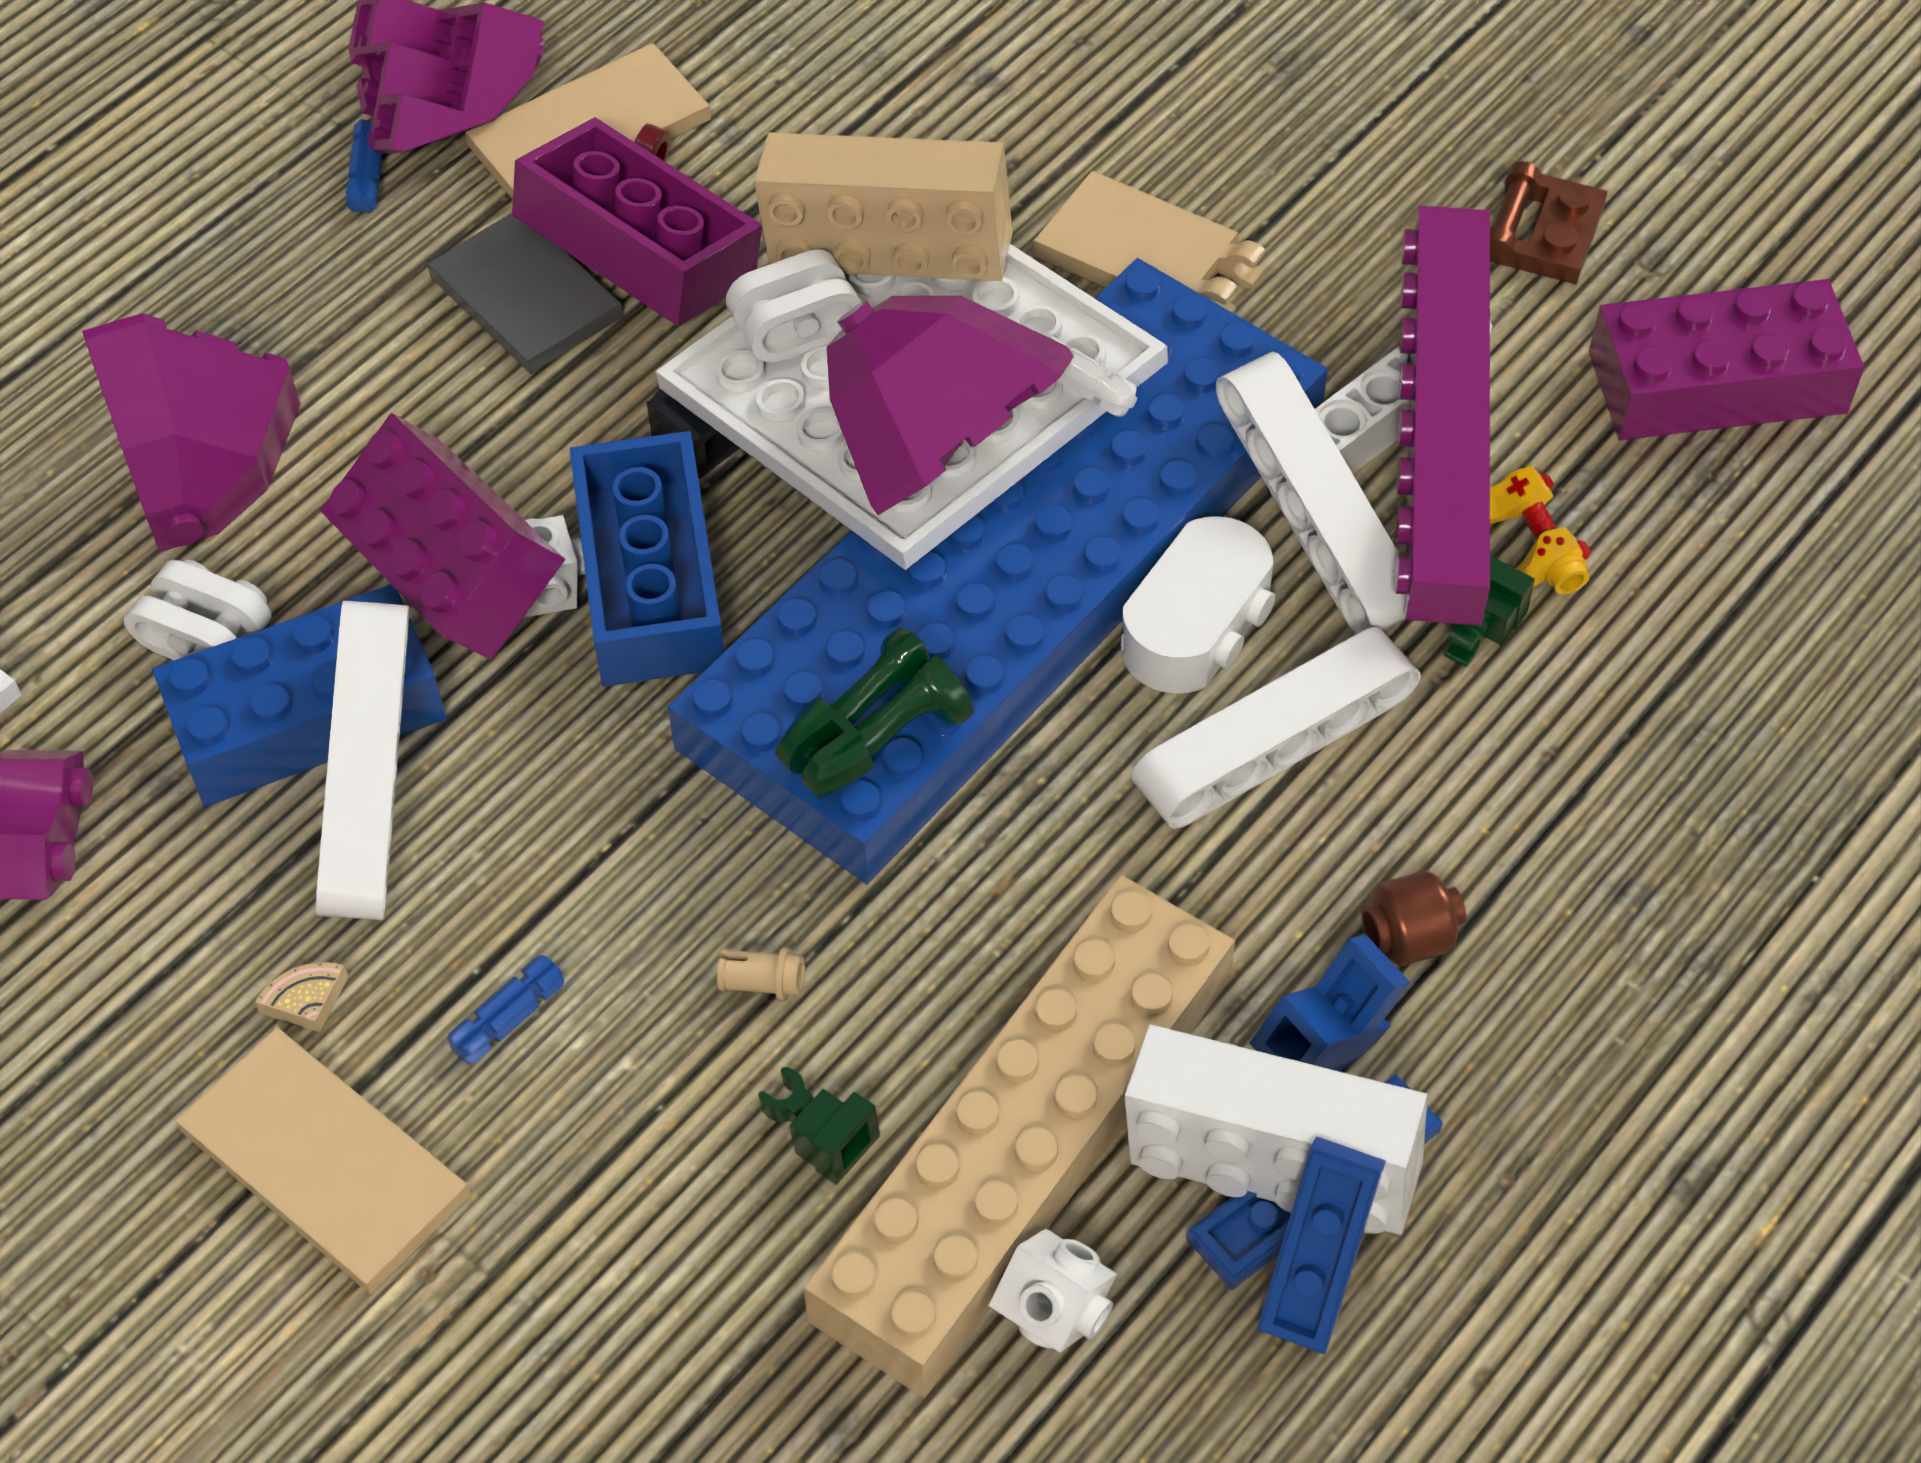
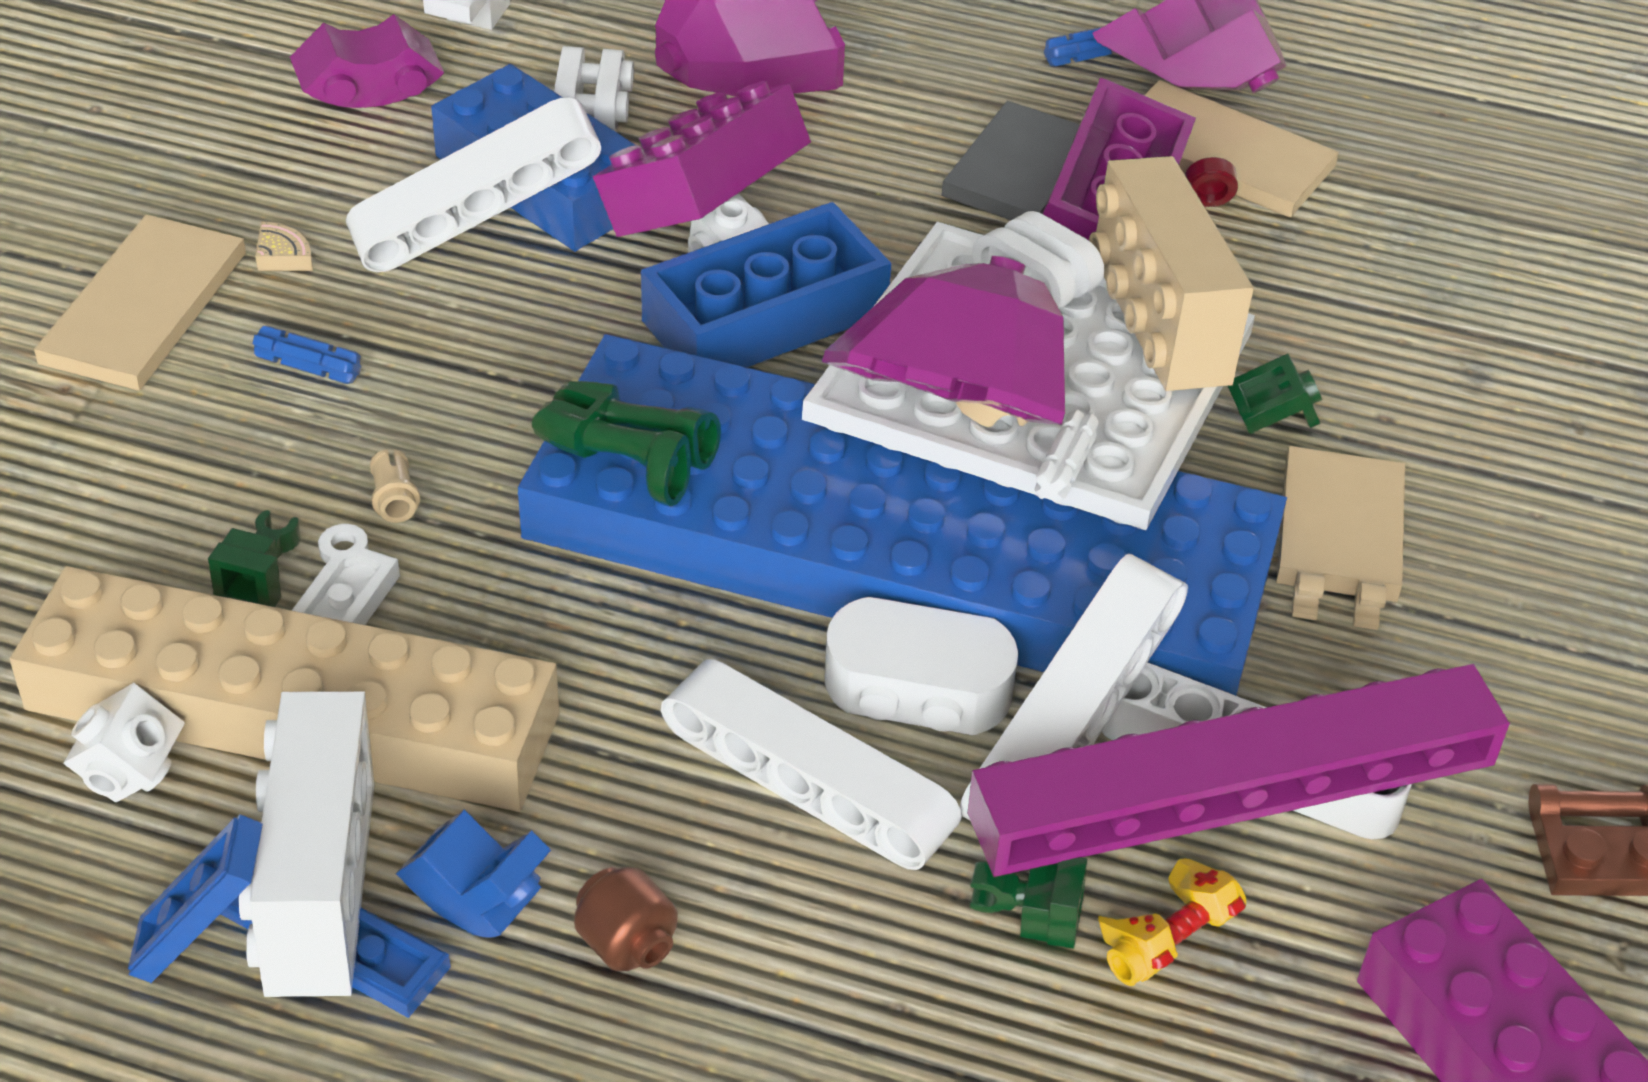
camera: 65 degrees right, 10 degrees down
(897, 1050) = (351, 580): none -> white hinge

